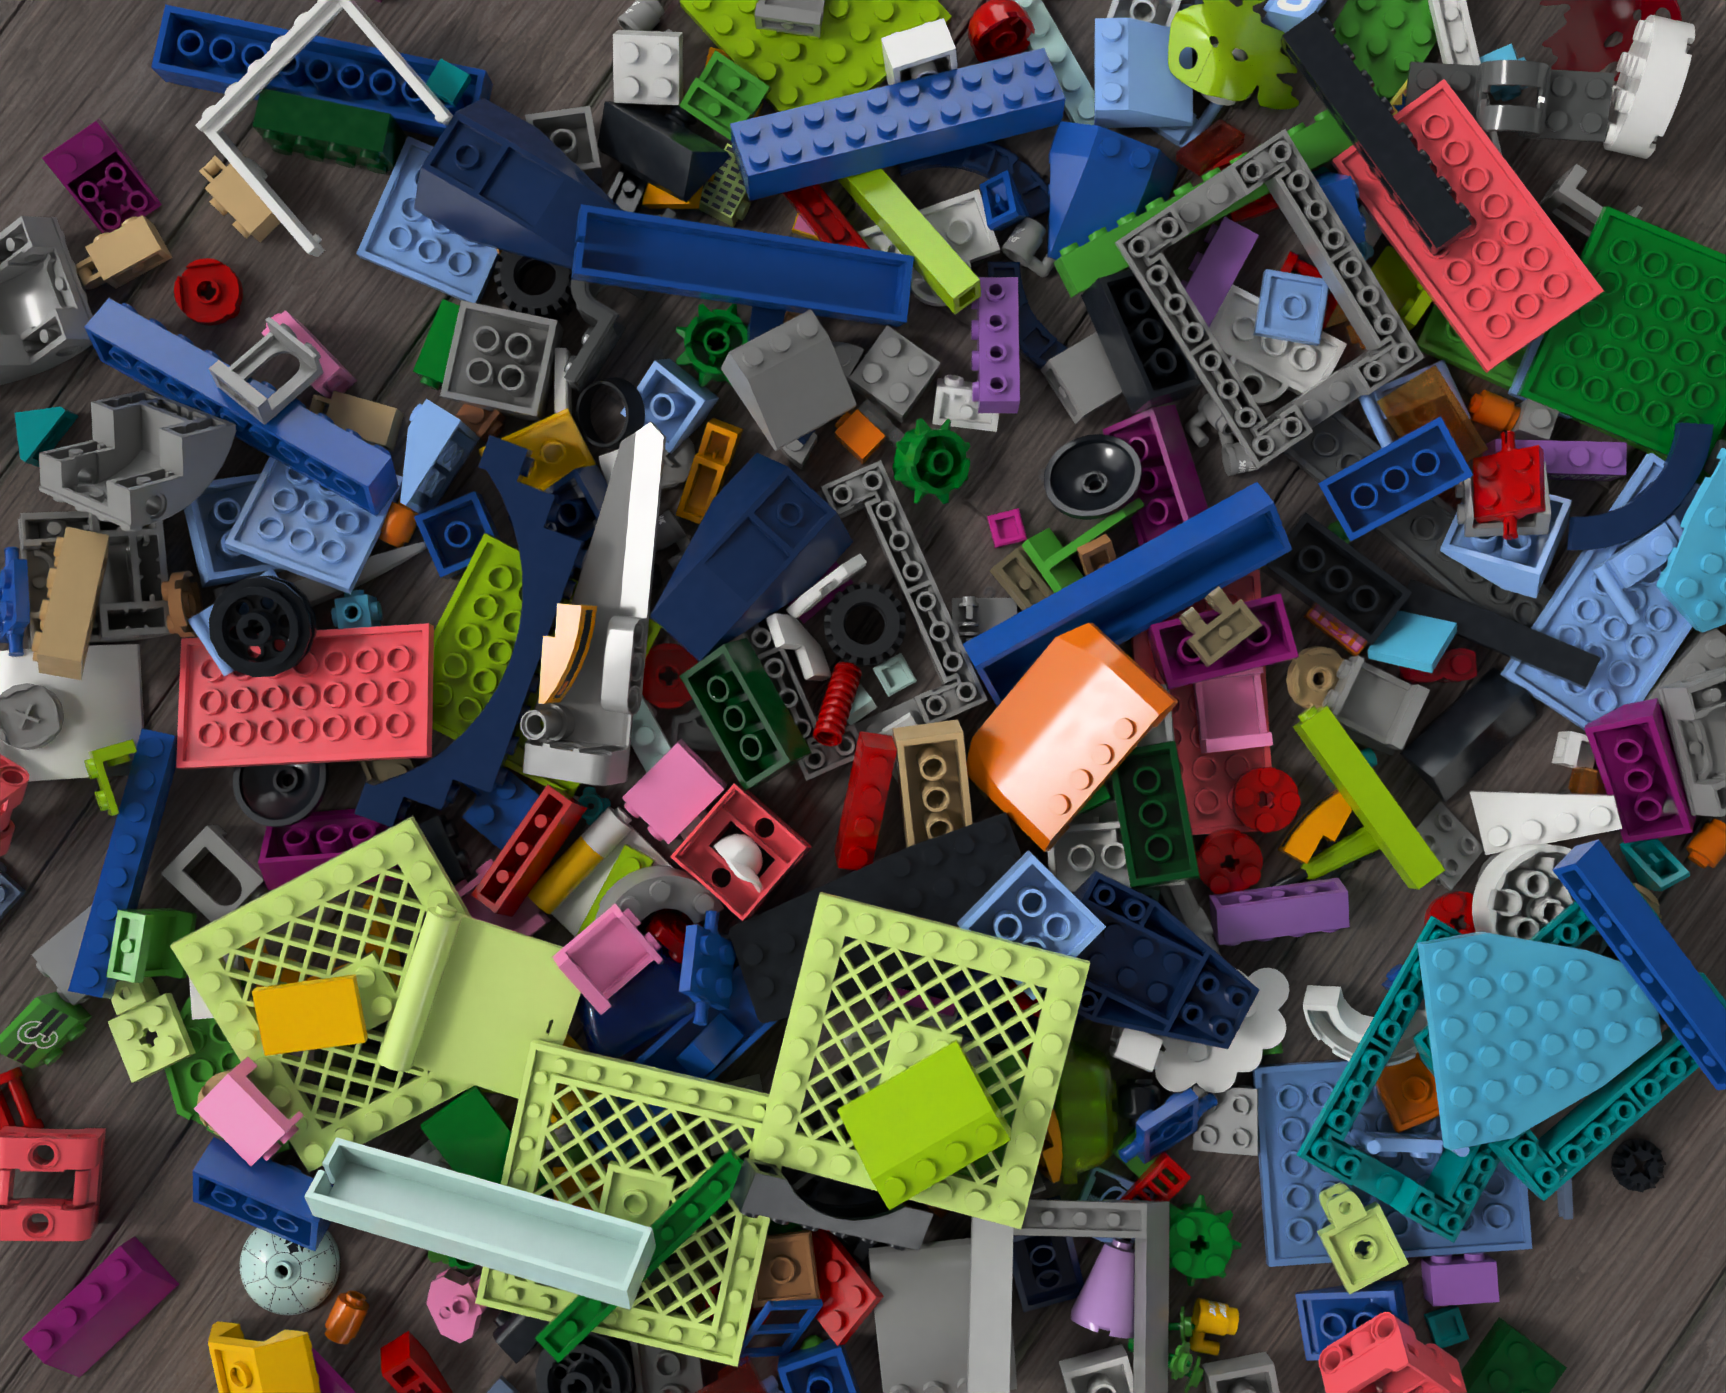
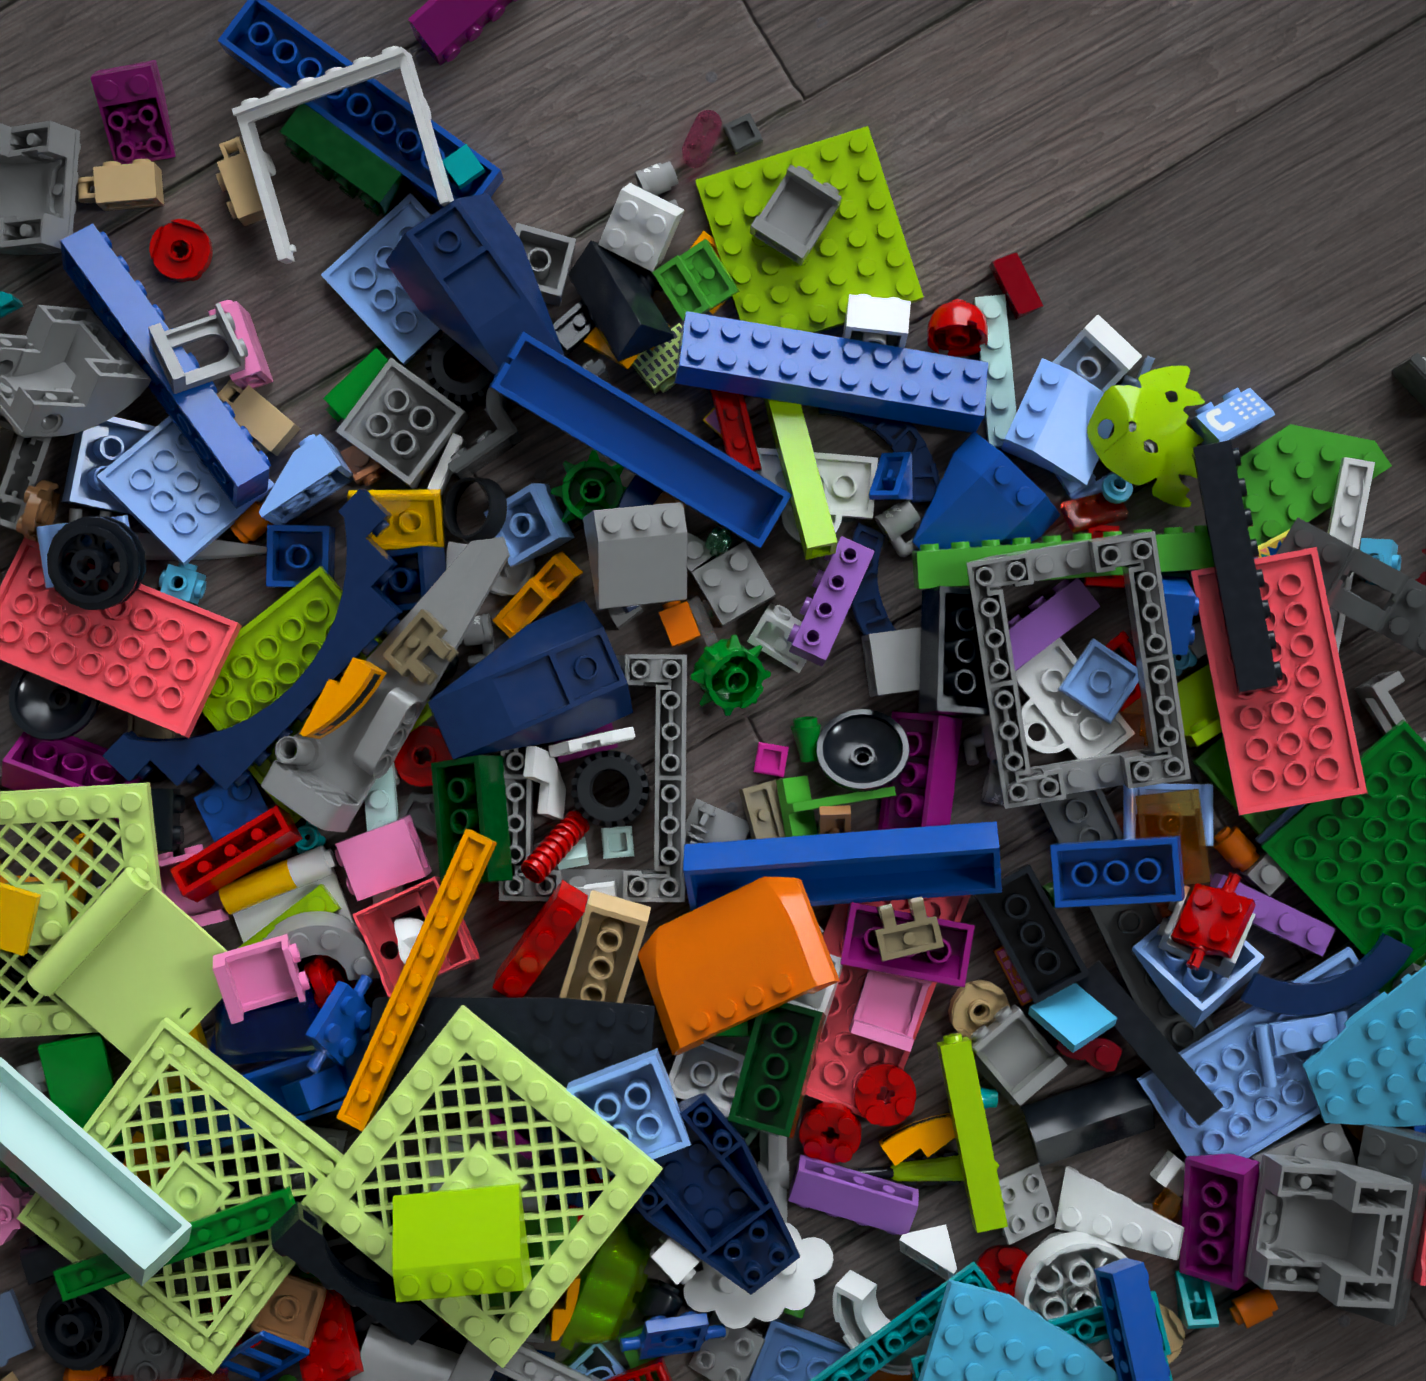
camera: 30 degrees right, 0 degrees up
(612, 566) = (415, 643): none -> dark tan plate
(763, 889) = (416, 979): none -> light orange plate
(862, 335) = (718, 541): none -> clear green plate
(1031, 490) = (806, 733): none -> green cone
(1222, 116) = (1113, 494): none -> medium azure plate
(1381, 929) = (931, 1249): none -> white slope

